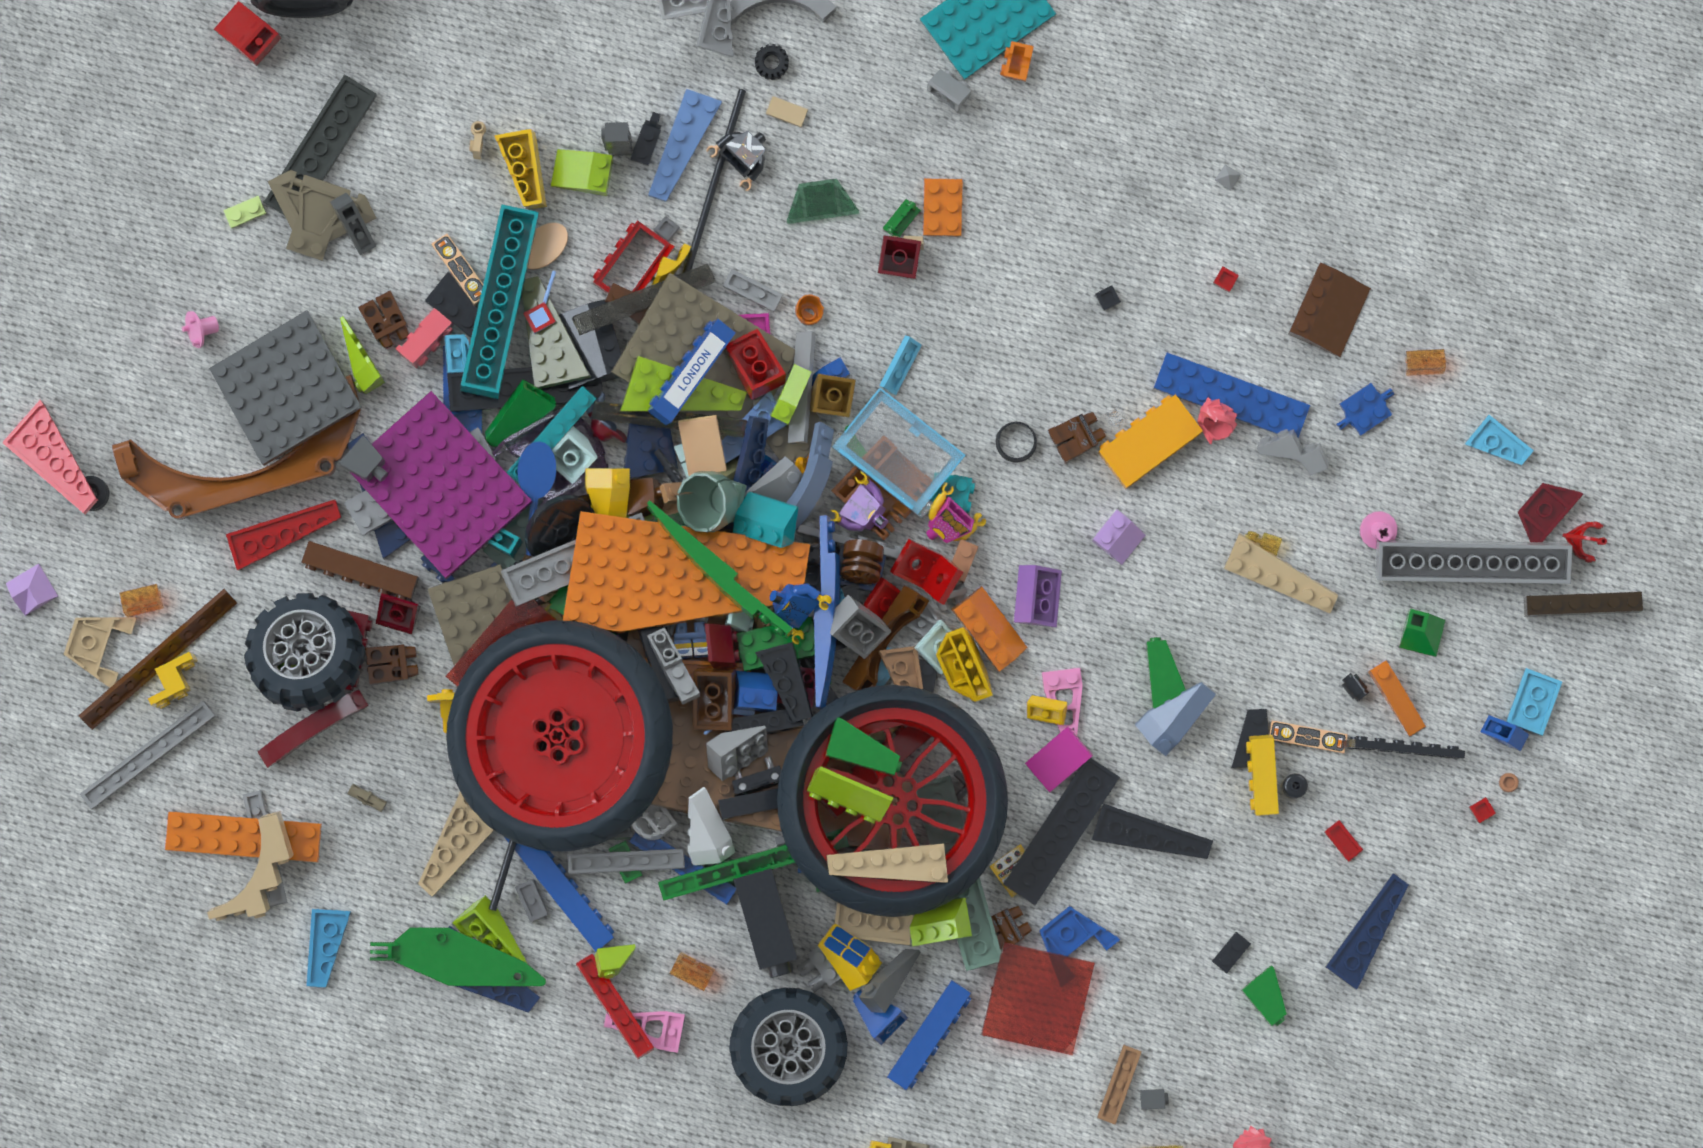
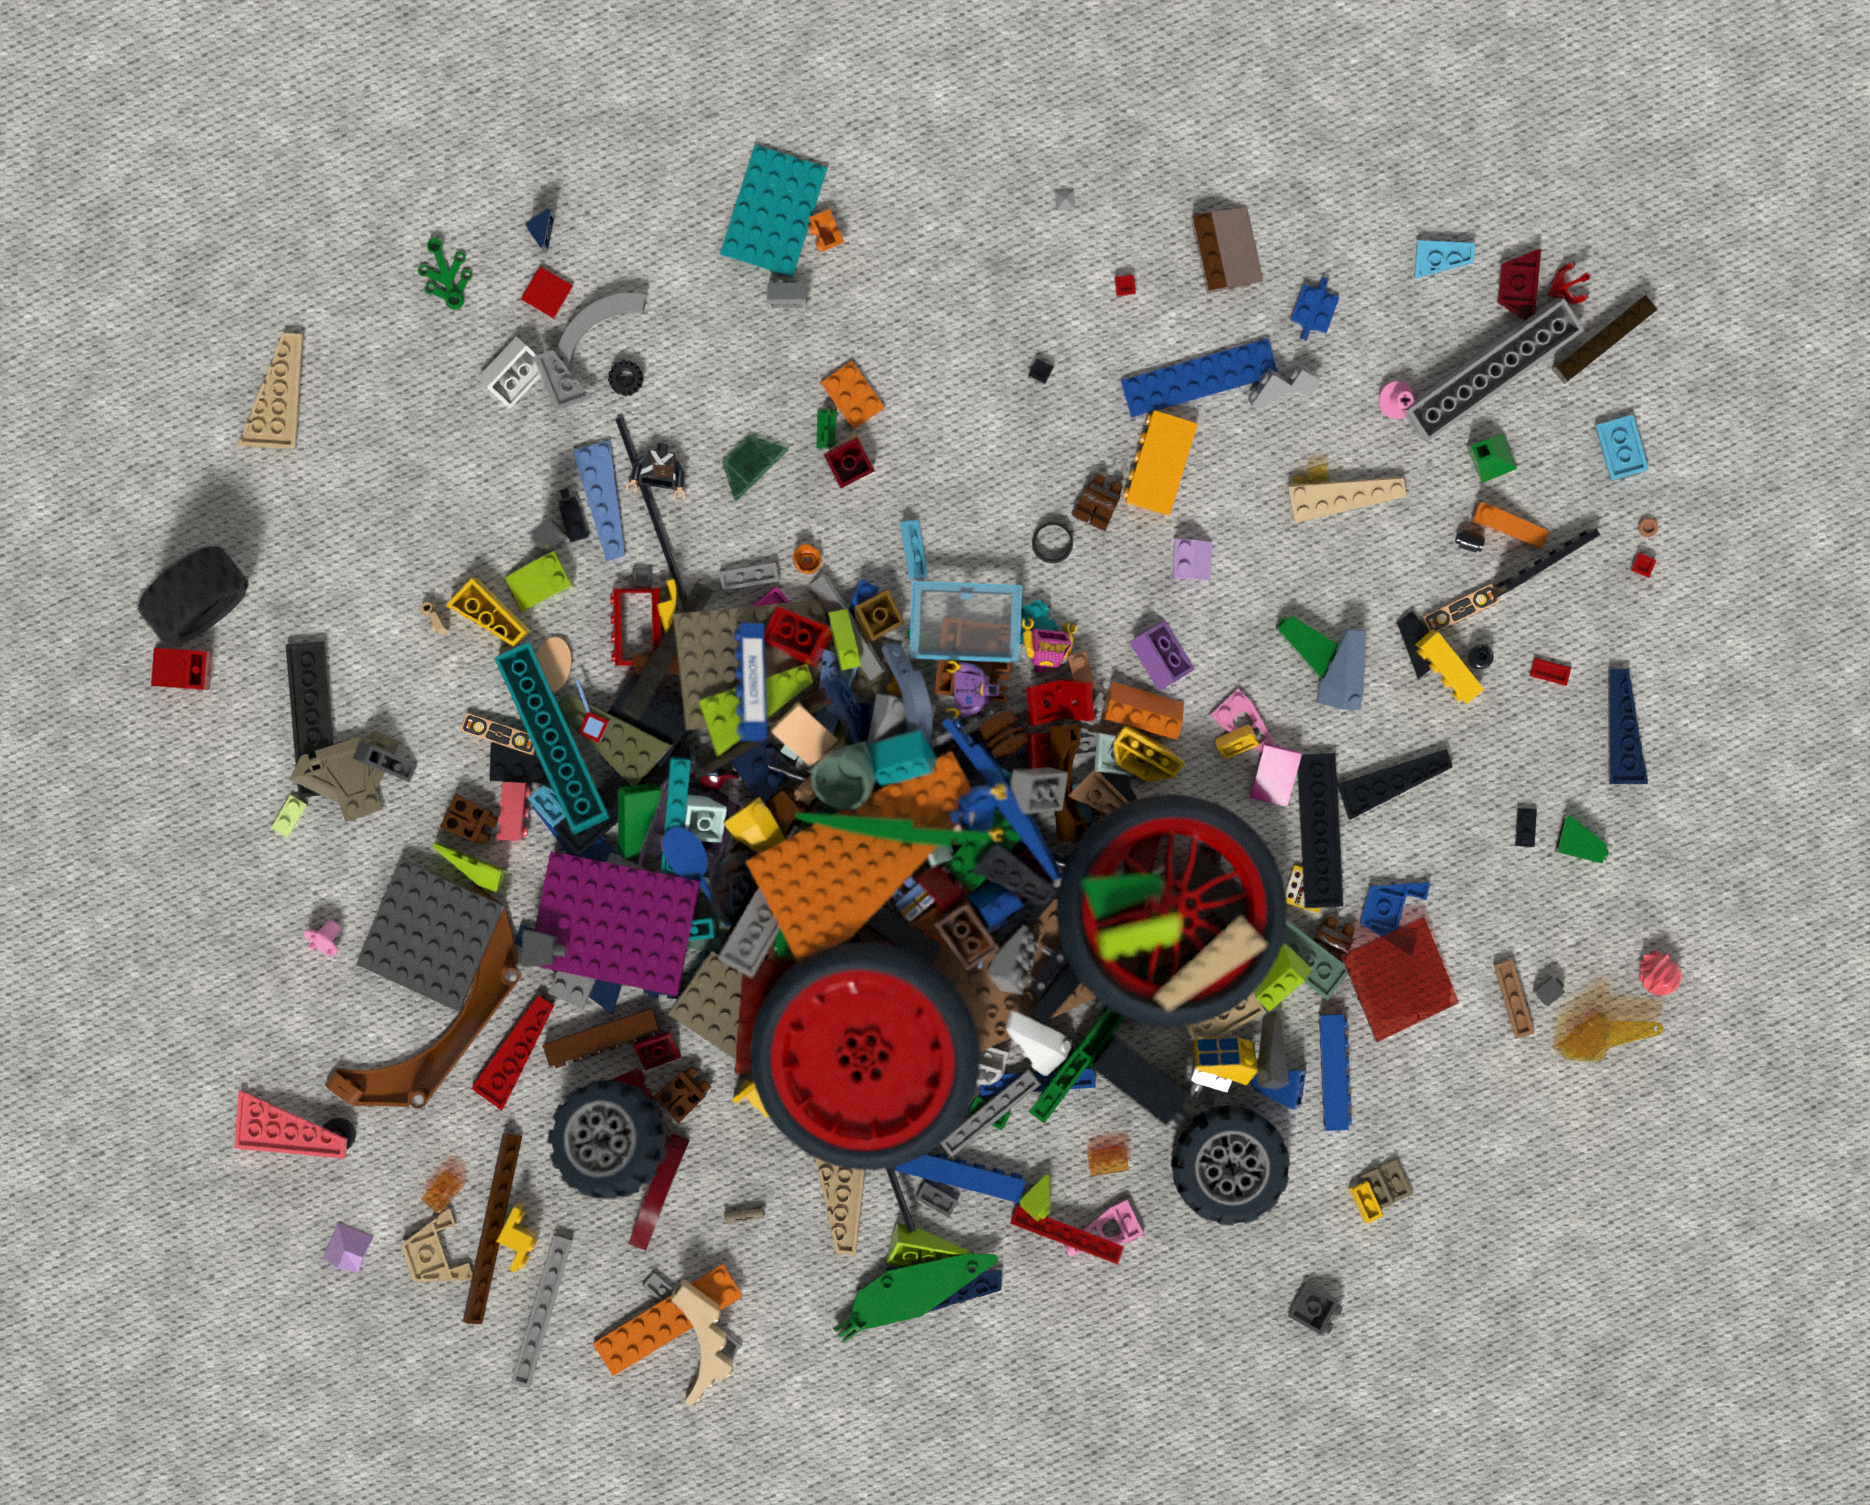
camera: 35 degrees left, 5 degrees up
(325, 940) = (795, 1352): dark azure wing -> none
(673, 666) = (915, 933): light grey slope -> none
(786, 111) = (668, 410): tan tile -> none
(1216, 420) = (1202, 407): coral hair -> none
(1425, 362) = (1335, 235): clear orange hinge -> none
(1505, 733) = (1616, 489): blue slope -> none

